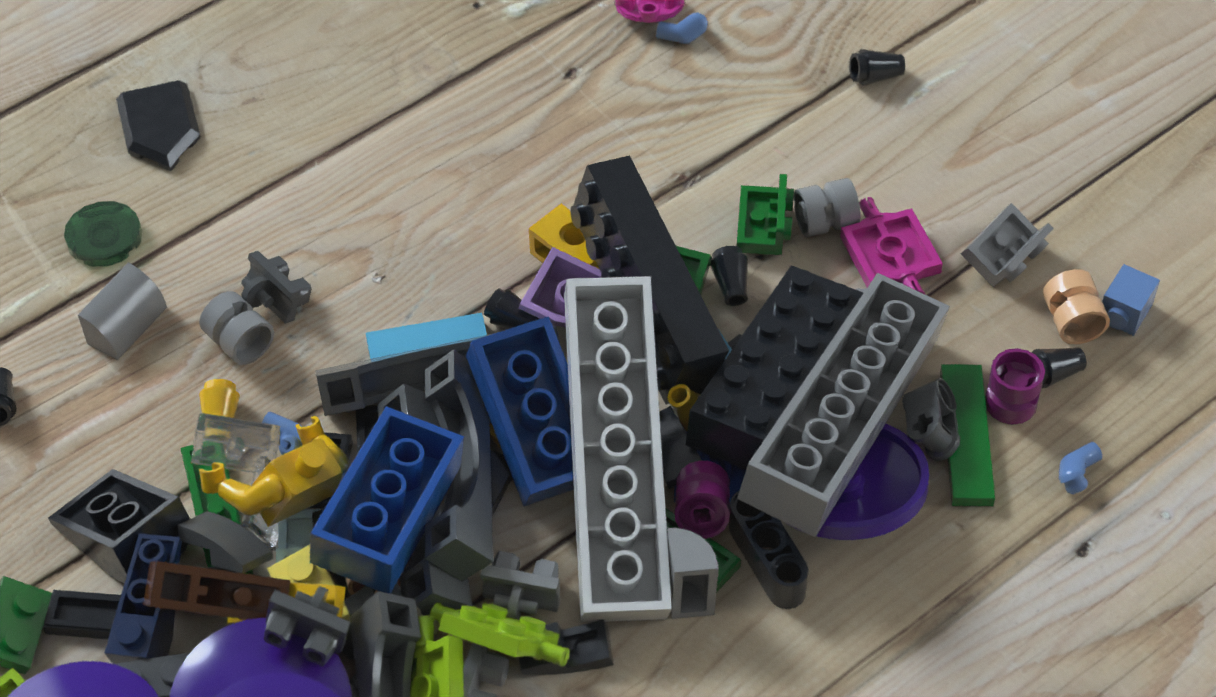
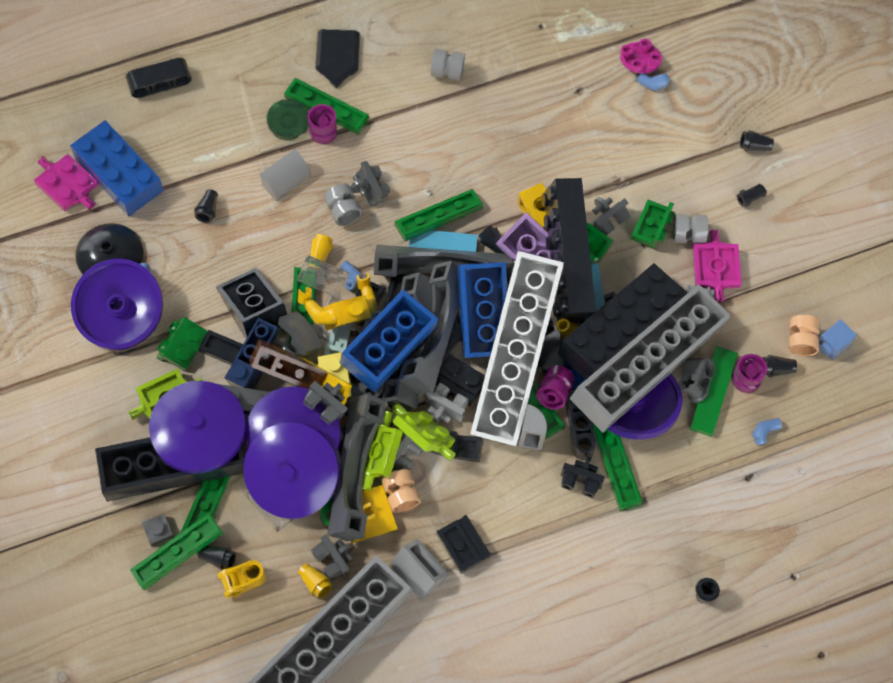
camera: 15 degrees right, 15 degrees up
(164, 220) = (322, 124): none -> magenta wheel
(166, 197) = (346, 115): none -> green tile
(346, 86) = (447, 64): none -> light grey wheel
(405, 301) = (438, 215): none -> green tile
(534, 537) = (460, 378): none -> black plate
(699, 215) = (618, 211): none -> dark grey hips
(730, 271) = (622, 253): black cone -> none
(804, 626) = (583, 473): none -> black hips
(857, 600) = (617, 469): none -> green tile
(894, 143) = (745, 197): none -> black pin
(1004, 245) = (782, 283): light grey bracket -> none

